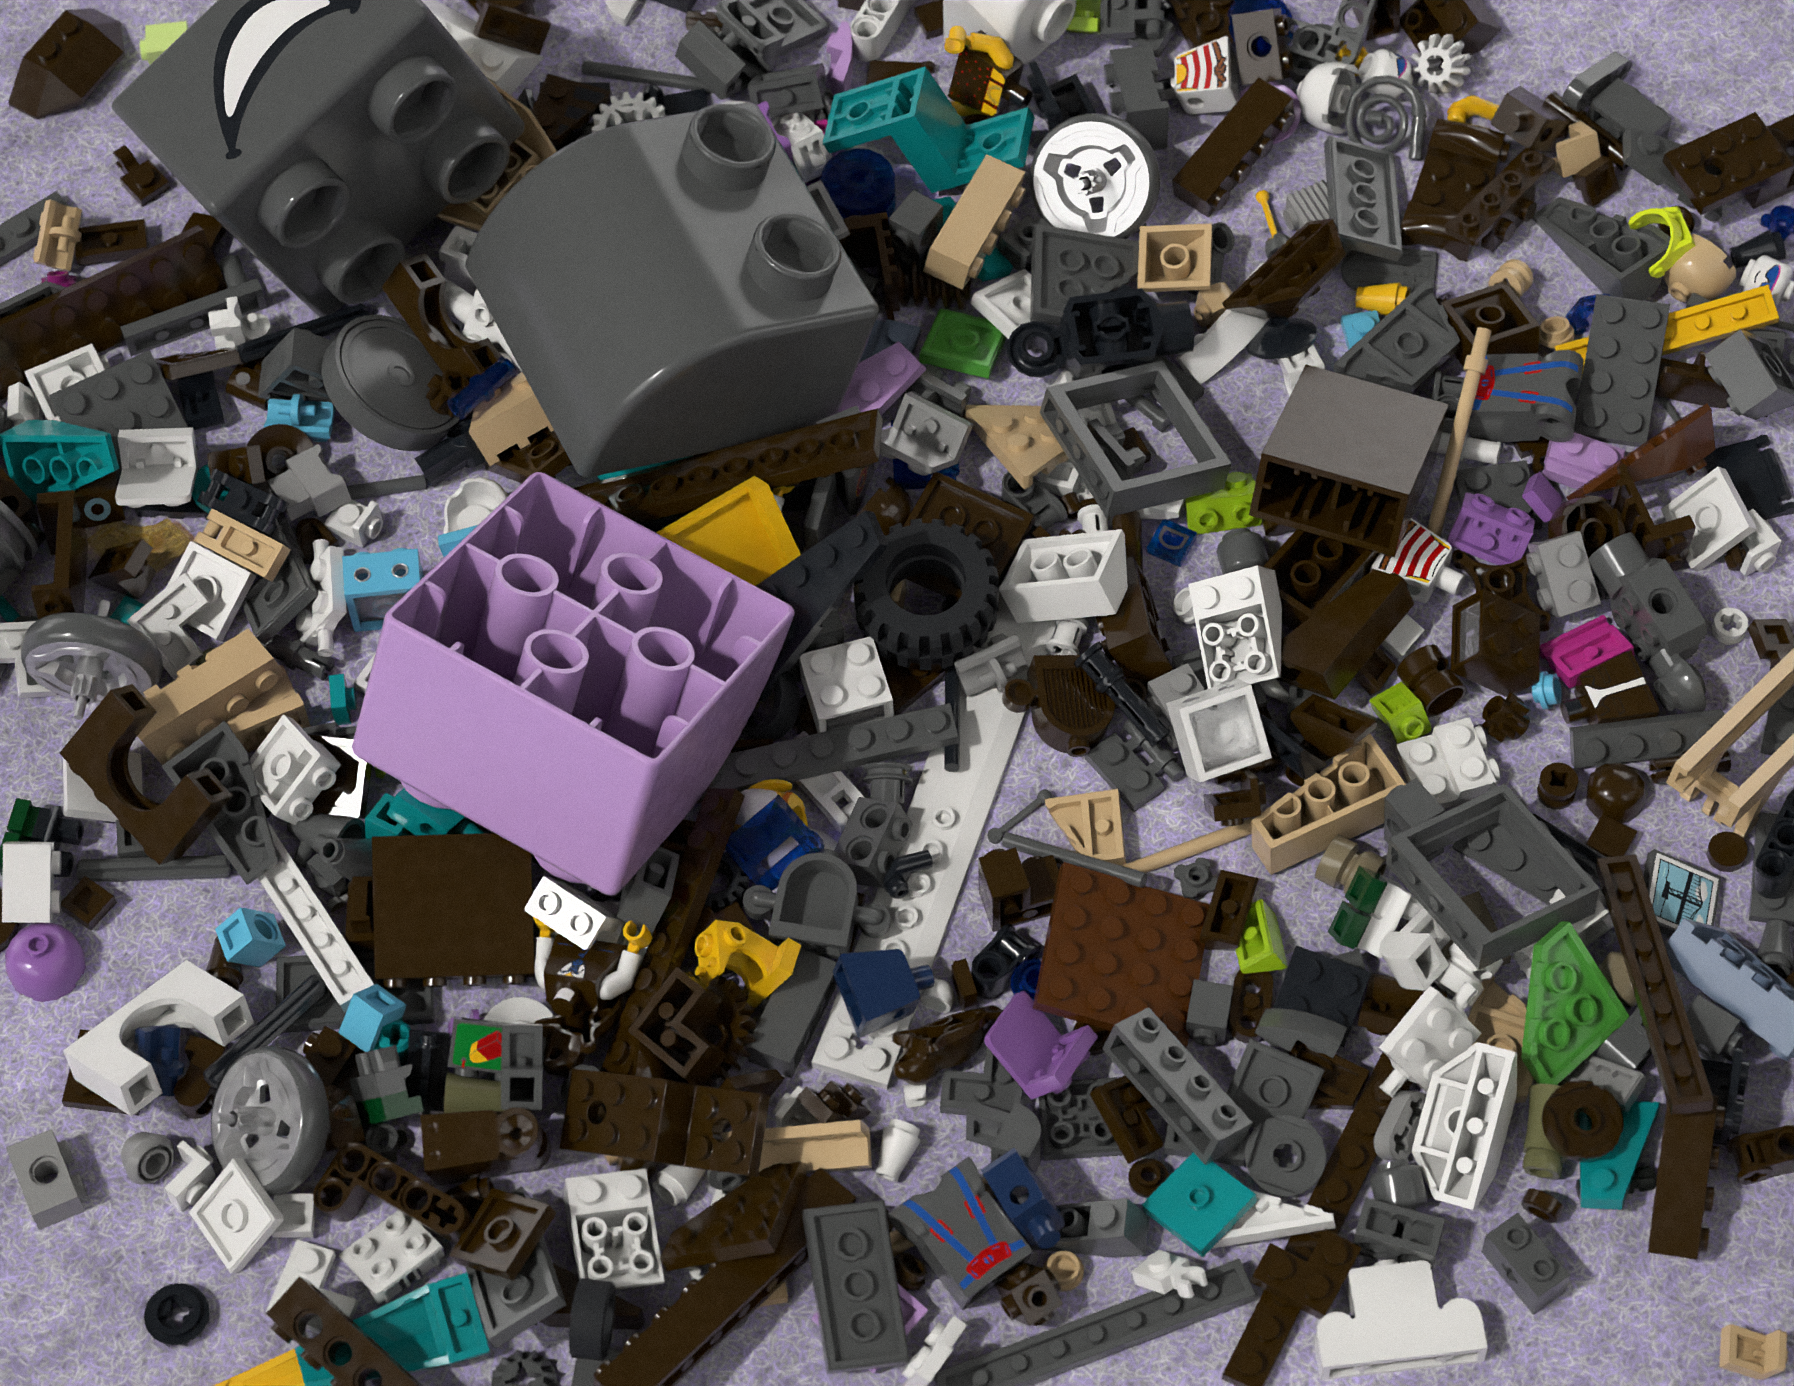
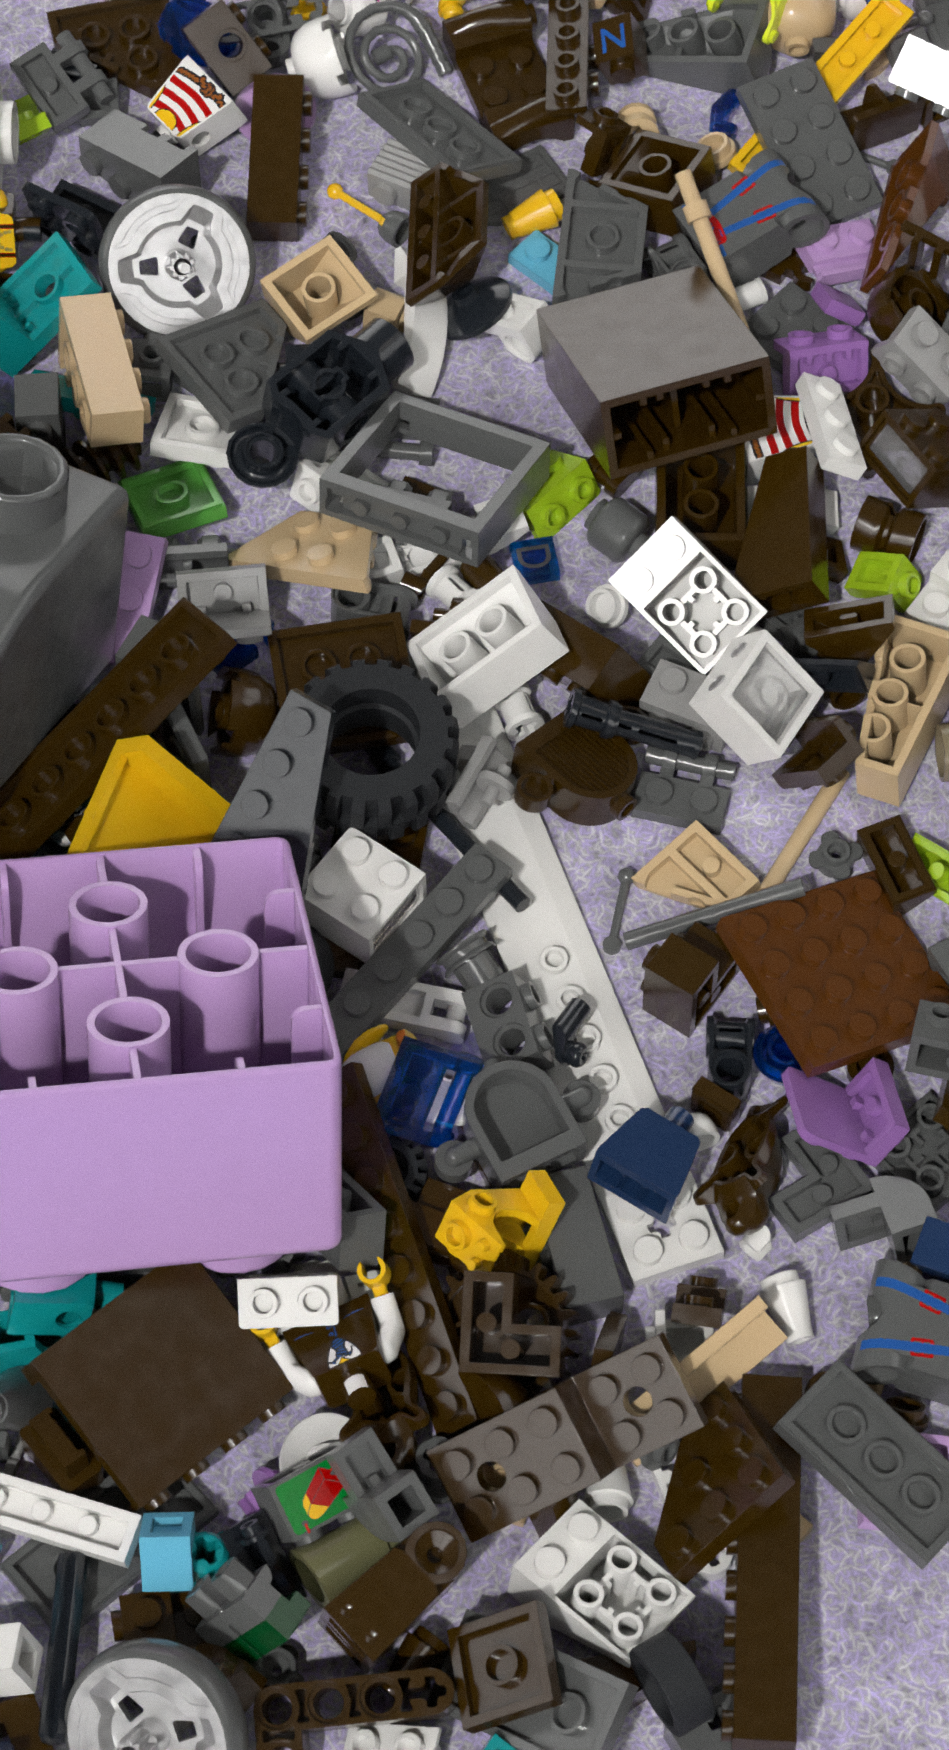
camera: 40 degrees left, 0 degrees up
(1448, 578) = (830, 426): none -> white plate
(1475, 273) = (607, 139): none -> dark brown bracket
(1545, 215) = (620, 48): none -> dark brown brick

